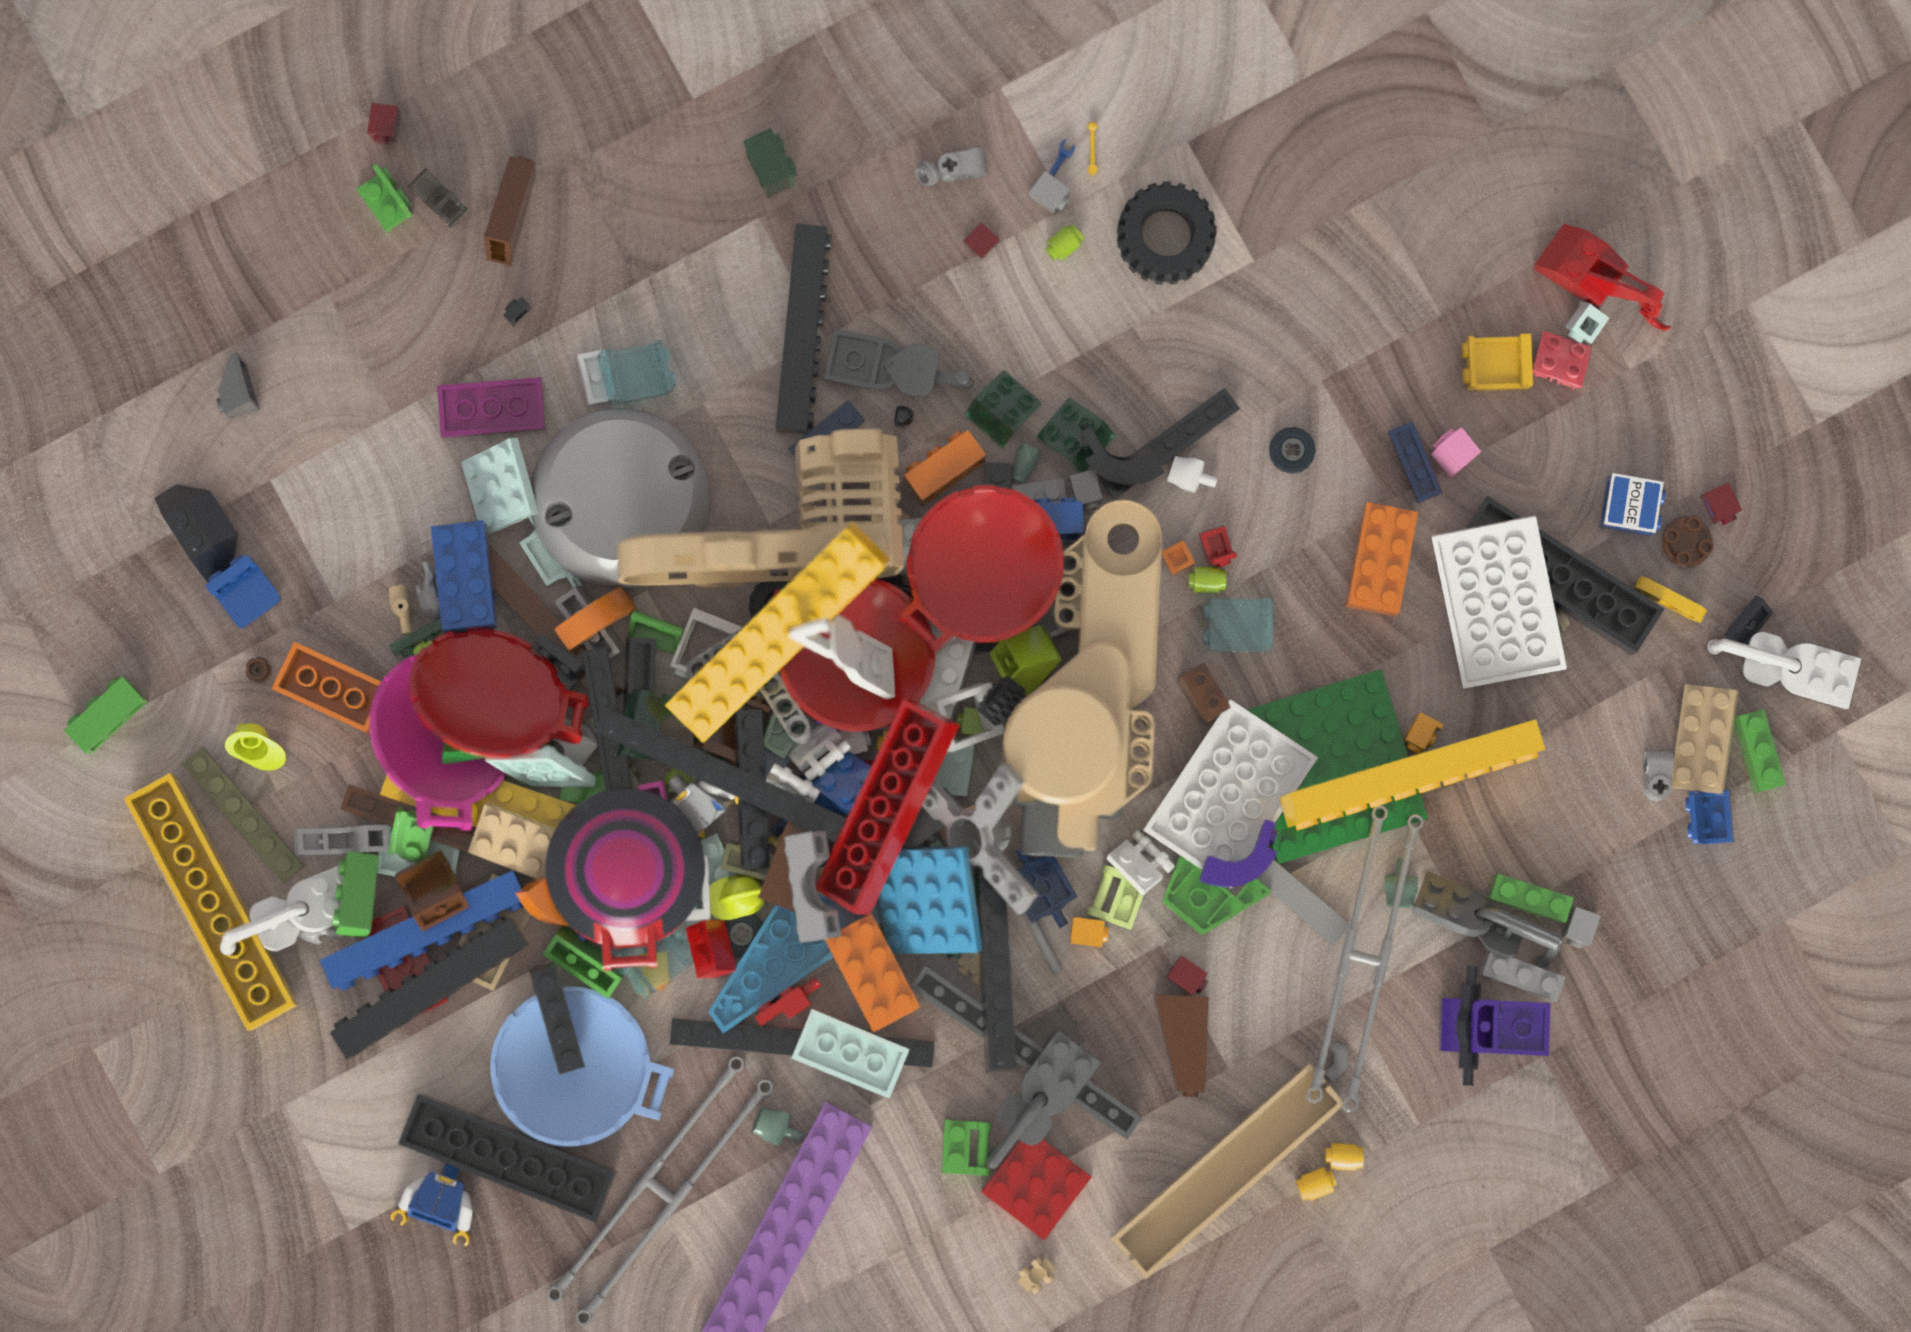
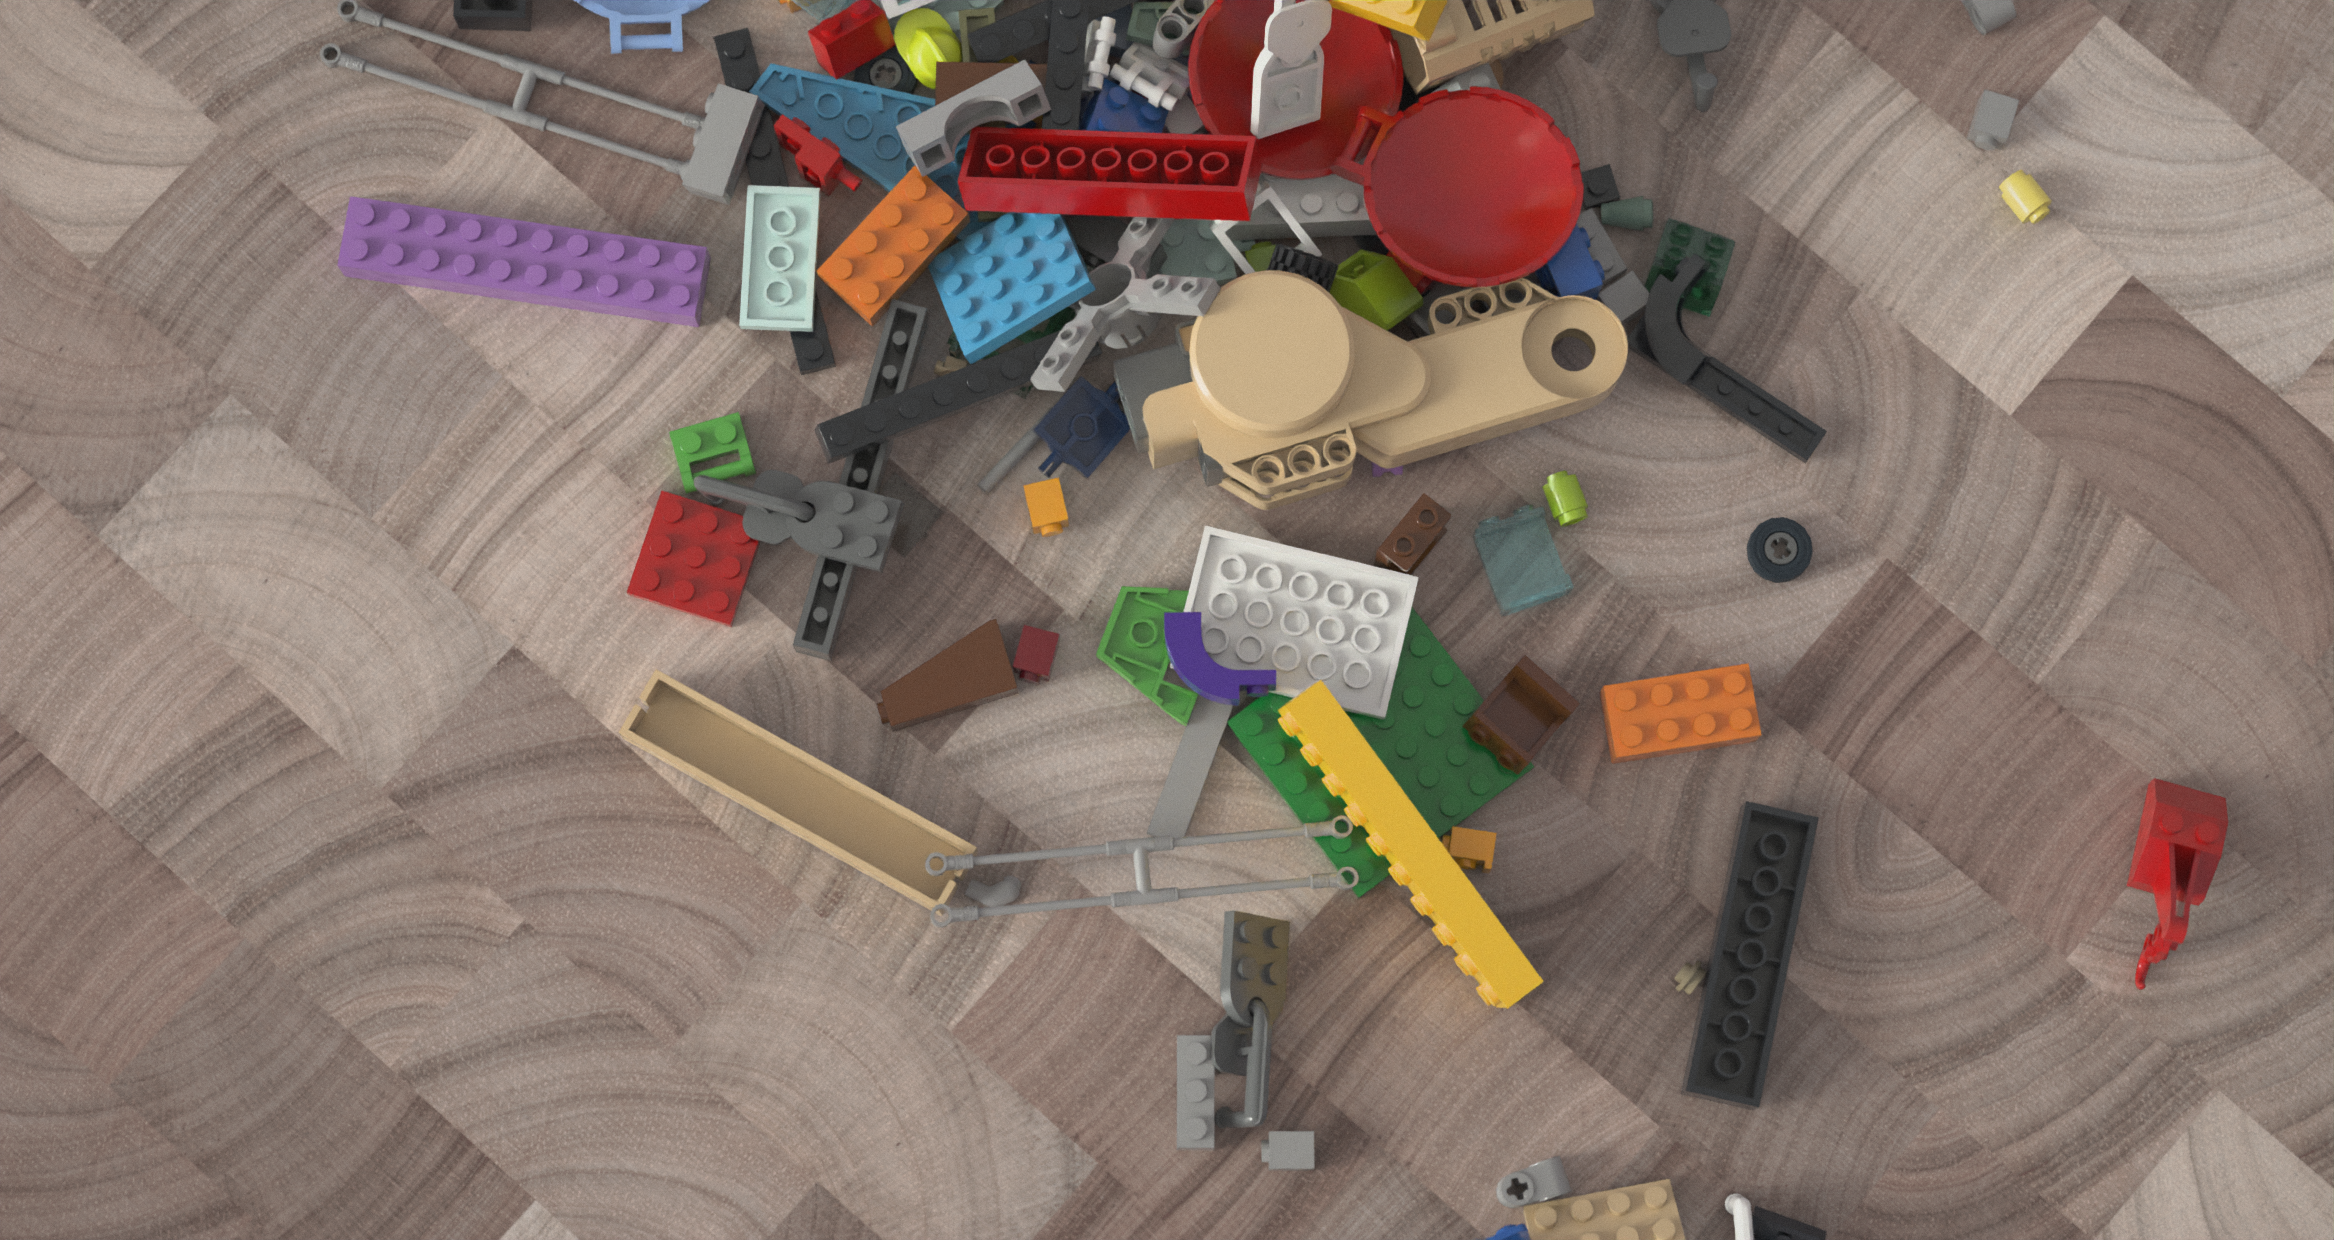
camera: 75 degrees right, 5 degrees down
(754, 1065) = (722, 143): none -> light grey brick
(774, 1125) = (655, 201): sand green piece -> none
(903, 416) = (1628, 41): black hinge -> none
(944, 467) = (1583, 108): orange brick -> none
(981, 241) = (1895, 59): dark red tile -> none
(1002, 408) = (1688, 159): clear green bracket -> none
(1041, 1271) = (584, 603): tan piece -> none
(1061, 157) = (2048, 122): blue hand -> none
(1064, 243) = (1934, 161): lime brick -> none
(1092, 169) = (2046, 166): yellow hinge -> none
(1111, 192) = (2025, 197): none -> light yellow brick
(1125, 903) = (1106, 542): yellowish green plate -> none
(1135, 866) = (1153, 536): white plate -> none
(1175, 200) = (2021, 243): black tyre -> none
(1177, 557) = (1579, 450): orange plate -> none
(1188, 474) = (1695, 426): white piece -> none
(1217, 546) = (1614, 495): red bracket -> none
(1316, 1184) = (822, 918): yellow brick -> none
(1344, 1156) = (871, 942): yellow brick -> none
(1346, 666) = (1520, 715): none -> reddish brown panel
(1409, 890) = (1258, 902): sand green piece -> none
(1415, 462) = (1826, 714): dark blue plate -> none
(1454, 451) = (1860, 753): bright pink brick -> none
(1491, 1026) = (1112, 1073): dark purple piece -> none
(1497, 363) = (2002, 776): yellow panel -> none
(1499, 601) = (1683, 883): white plate -> none
(1529, 898) = (1302, 1067): bright green brick -> none
(1561, 360) = (2040, 860): coral hinge -> none
(1593, 325) = (2110, 886): light aqua brick -> none
(1632, 504) = (1883, 1022): piece -> none
(1670, 599) = (1776, 1118): yellow beam -> none
(1687, 541) = (1862, 1115): reddish brown dish -> none
(1721, 504) = (1931, 1143): dark red brick -> none

